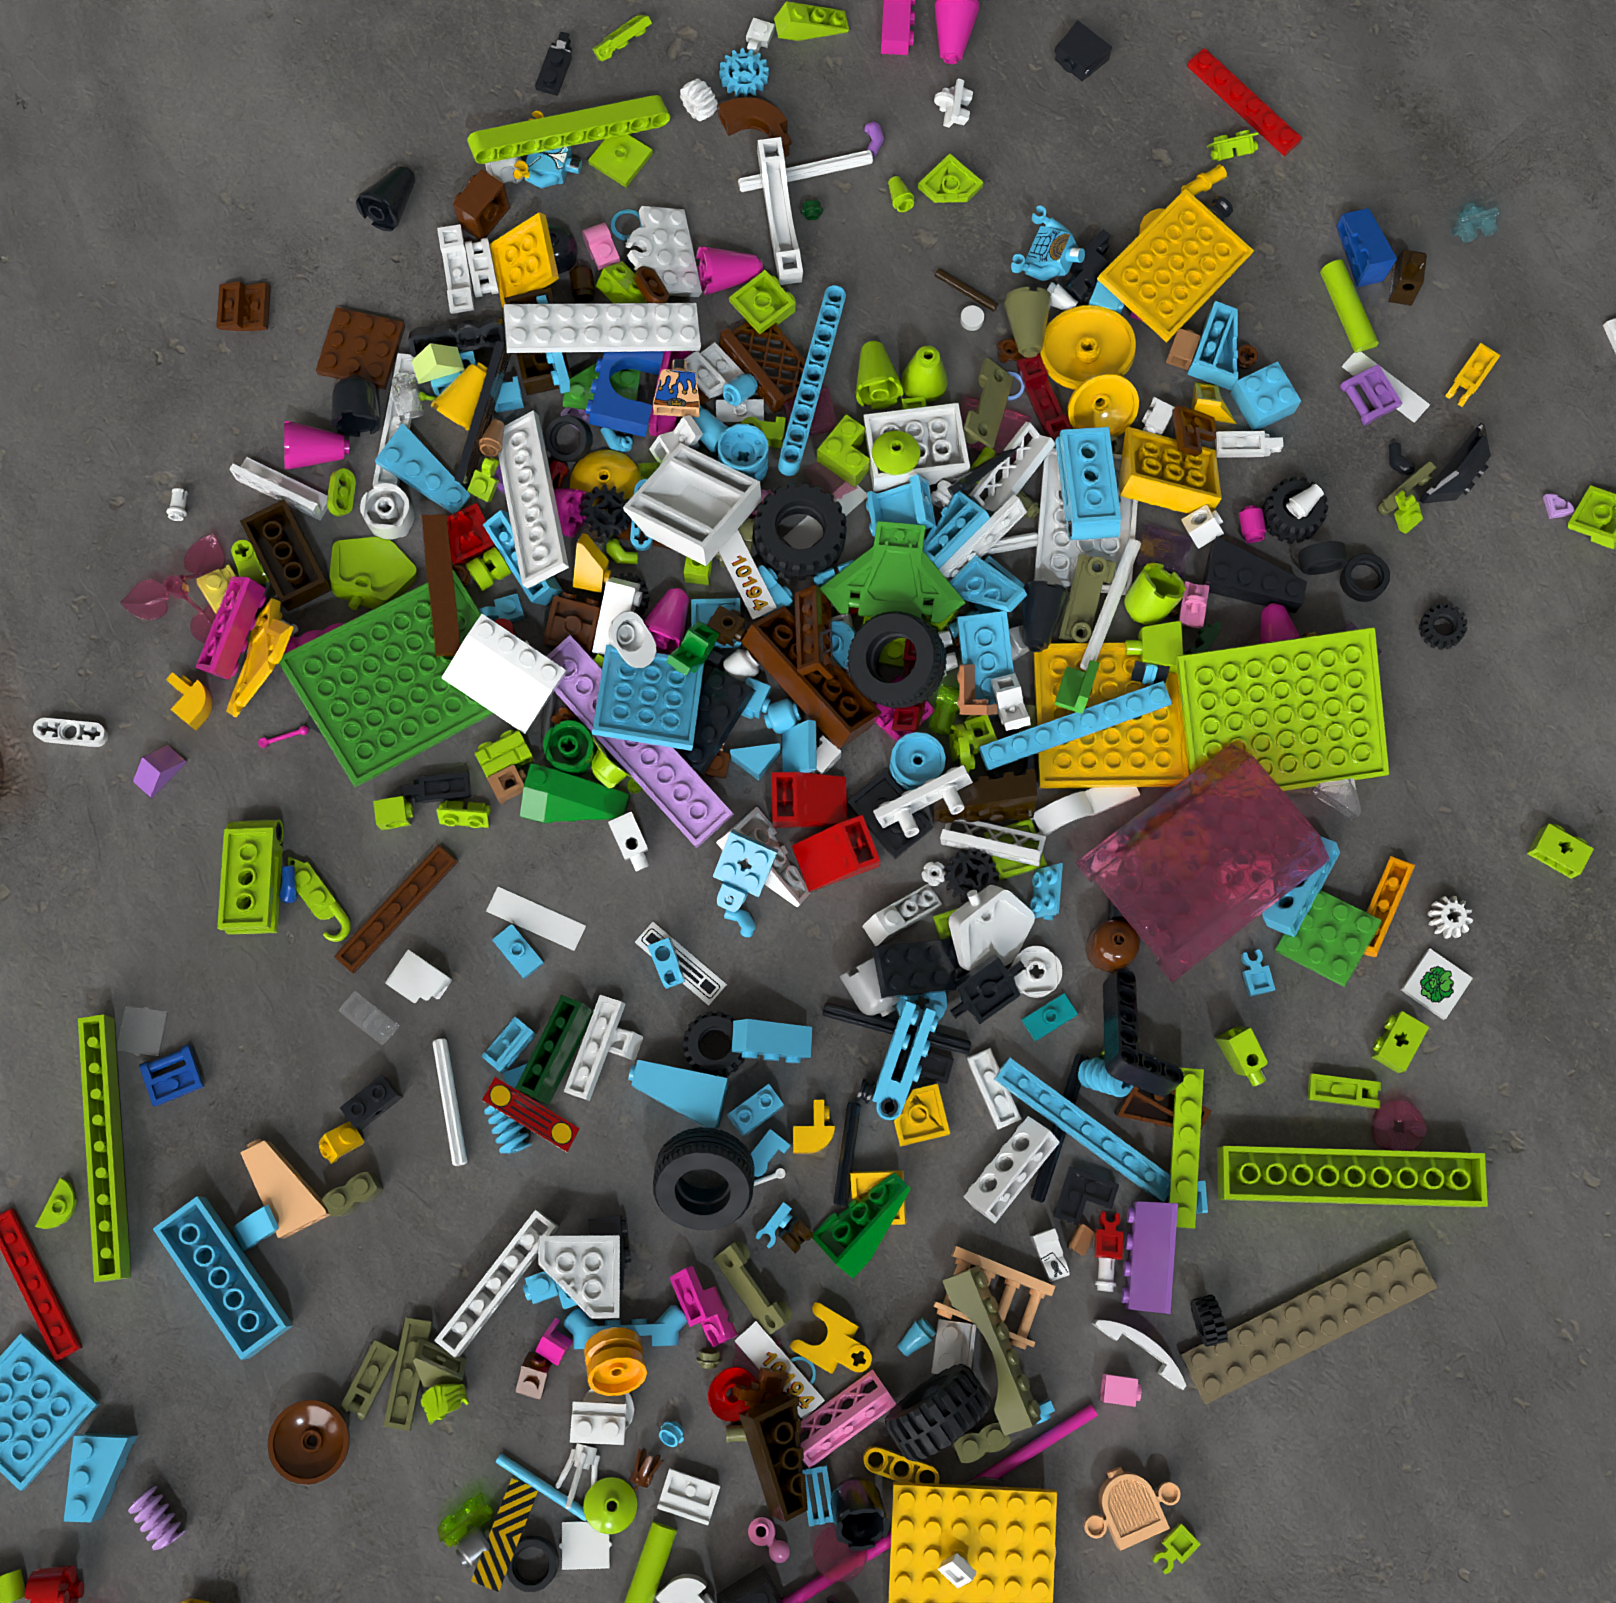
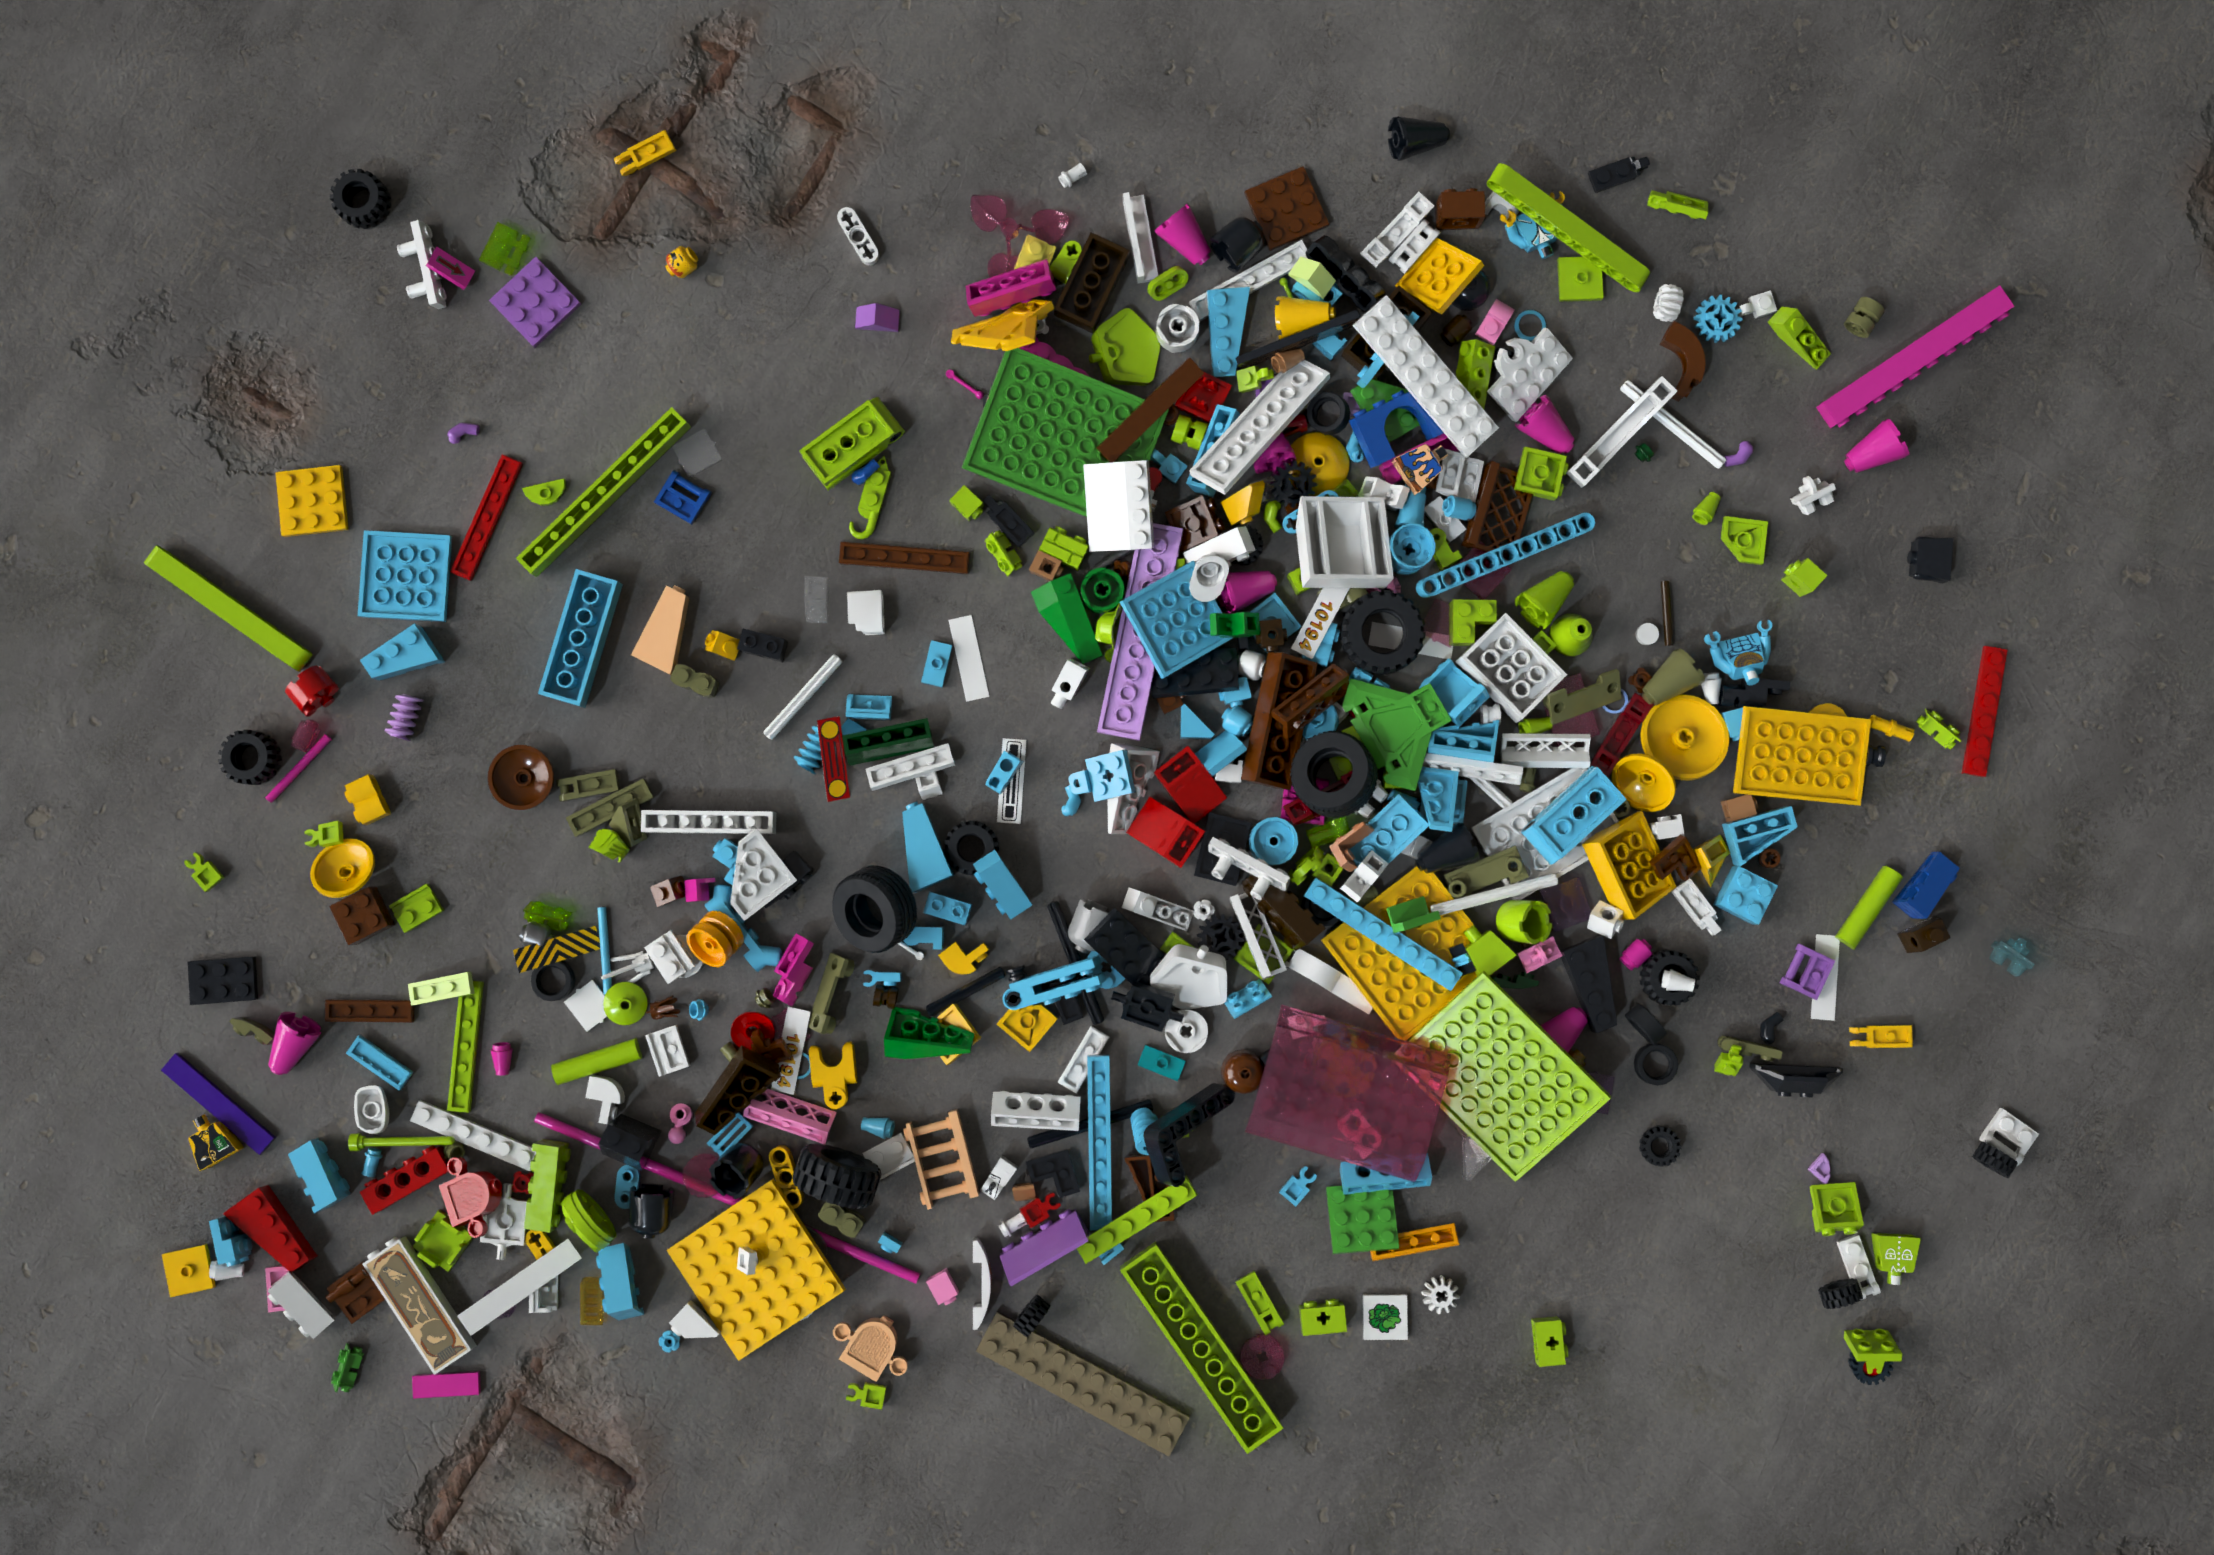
camera: 55 degrees right, 10 degrees up
(195, 703) = (941, 306): yellow brick -> none
(243, 306) = (1254, 99): reddish brown slope -> none
(255, 1227) = (626, 634): medium azure slope -> none
(407, 396) = (1272, 274): clear slope -> none
(650, 285) = (1485, 387): reddish brown plate -> none
(894, 461) = (1485, 665): lime dish -> none
(968, 479) = (1518, 727): black bar -> none
(1014, 1401) = (929, 1145): olive arch -> none
(1020, 156) = (1803, 576): none -> lime brick
(1243, 1053) = (1233, 1214): lime torso -> none

